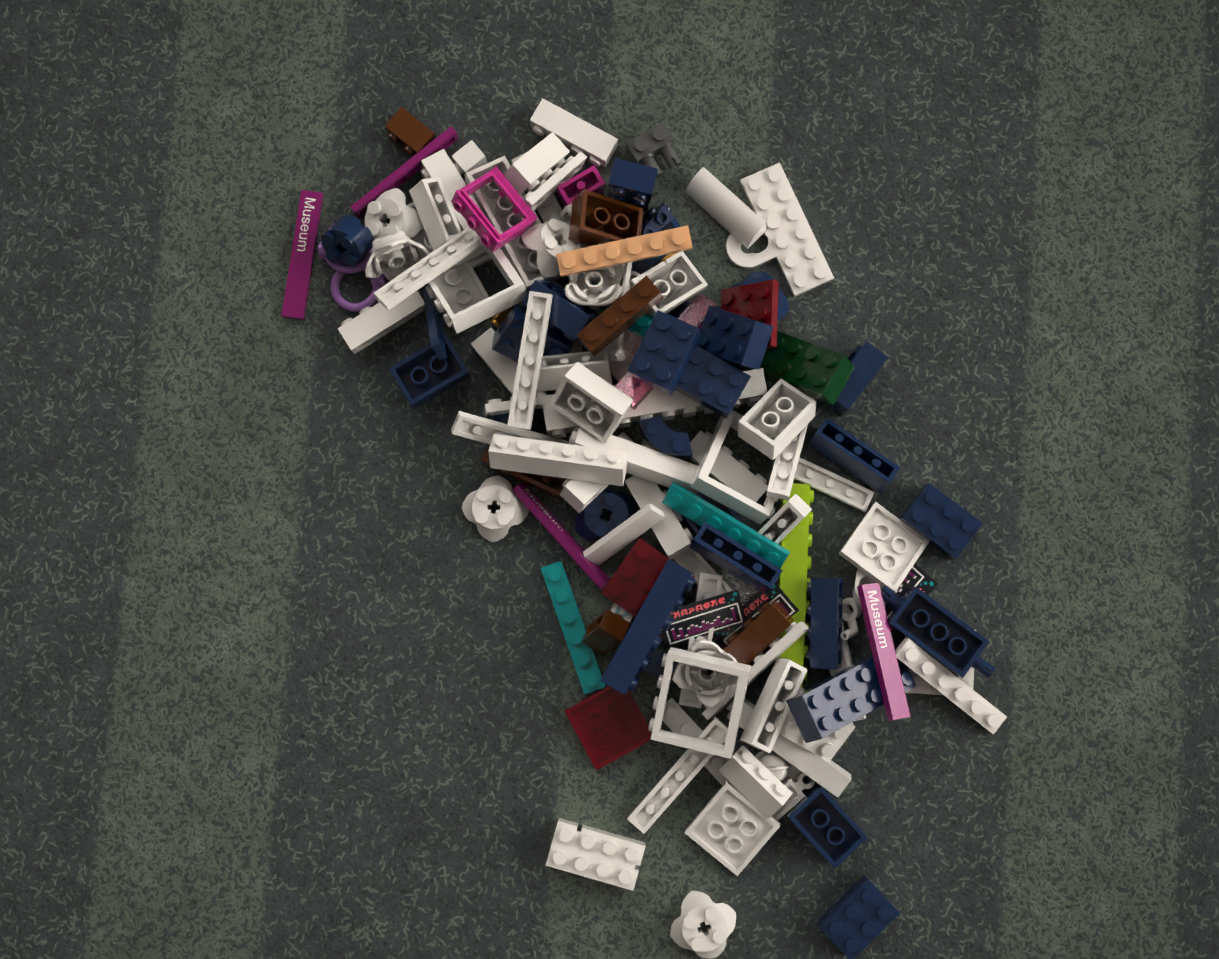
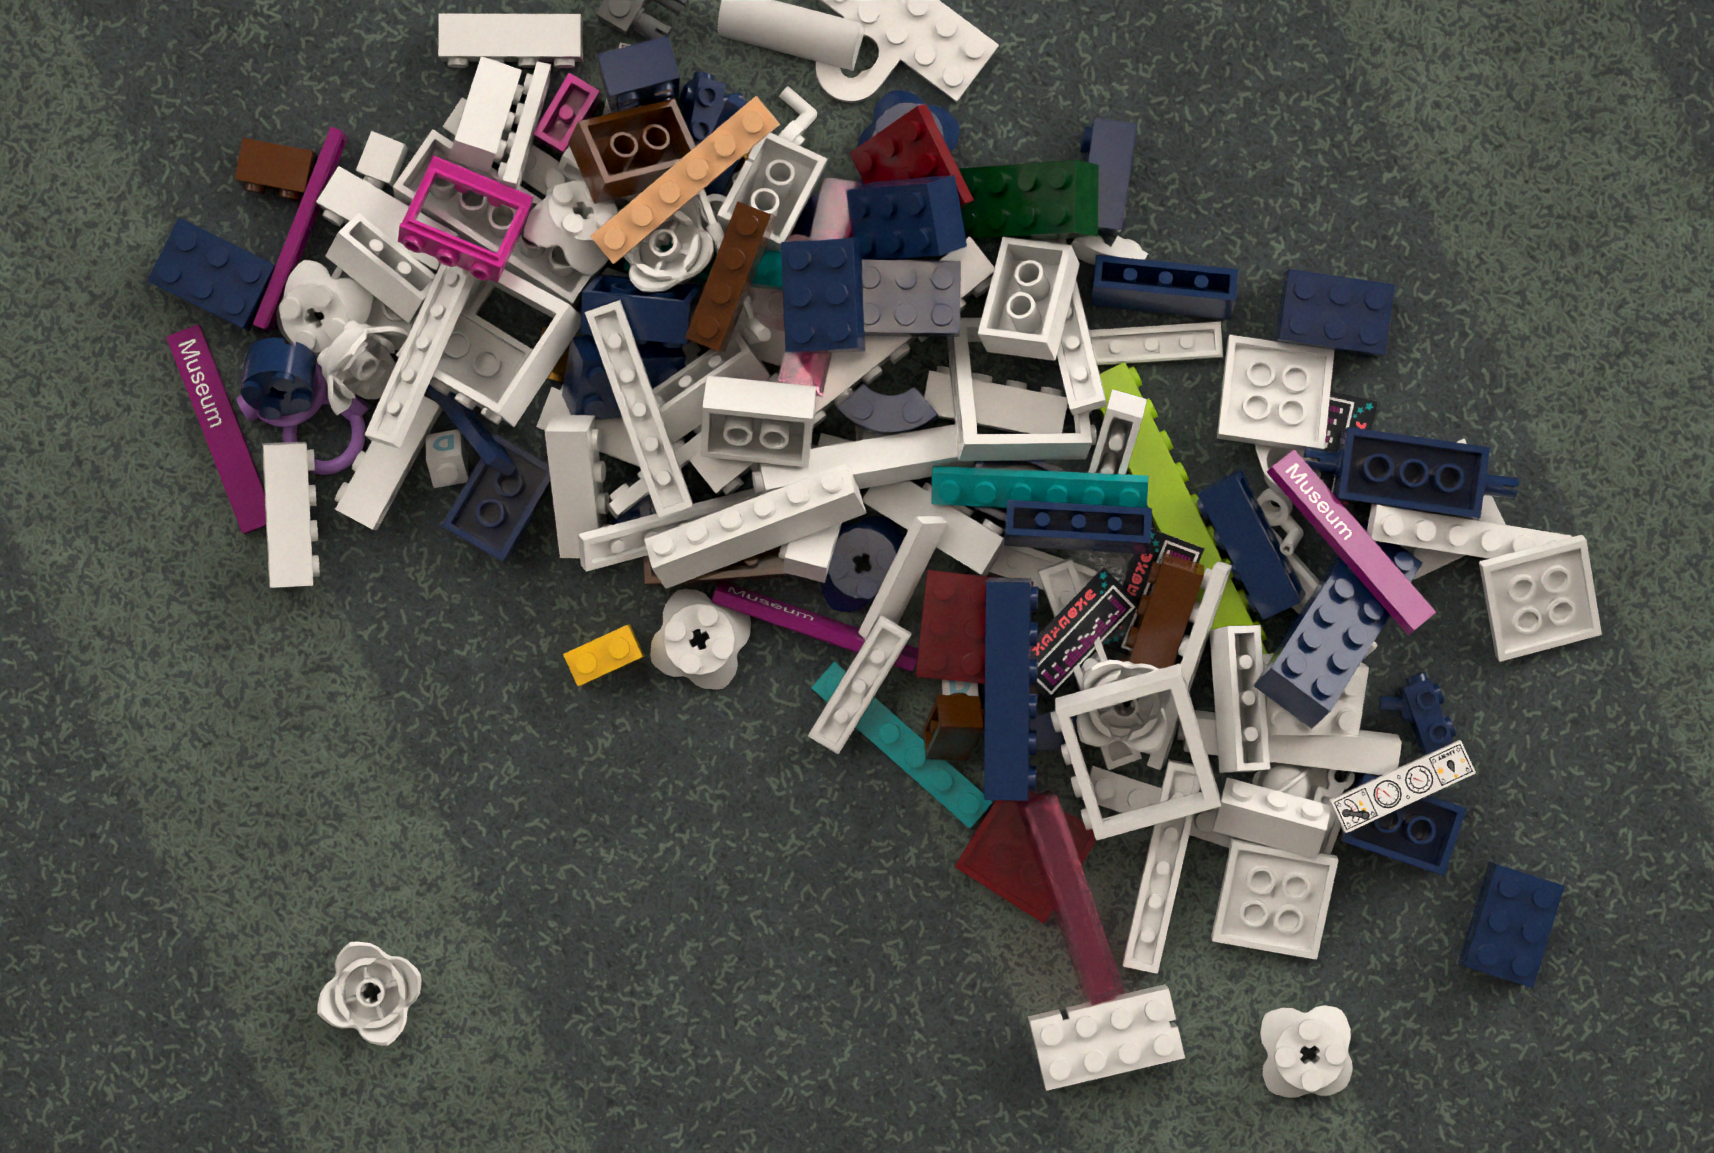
camera: 30 degrees left, 5 degrees up
(189, 601) = (344, 1001): none -> white brick
(311, 317) = (288, 514): none -> white brick
(344, 168) = (212, 274): none -> dark blue brick
(412, 334) = (446, 458): none -> white brick
(437, 487) = (604, 655): none -> yellow brick
(475, 381) = (576, 479): none -> white brick
(567, 580) = (859, 684): none -> white tile
(619, 764) = (1070, 897): none -> clear pink brick
(710, 259) = (807, 114): none -> white plate
(826, 410) = (1089, 247): none -> white slope
(838, 804) = (1402, 786): none -> tile
(872, 767) = (1421, 707): none -> dark blue brick
(972, 742) = (1540, 598): none -> white plate

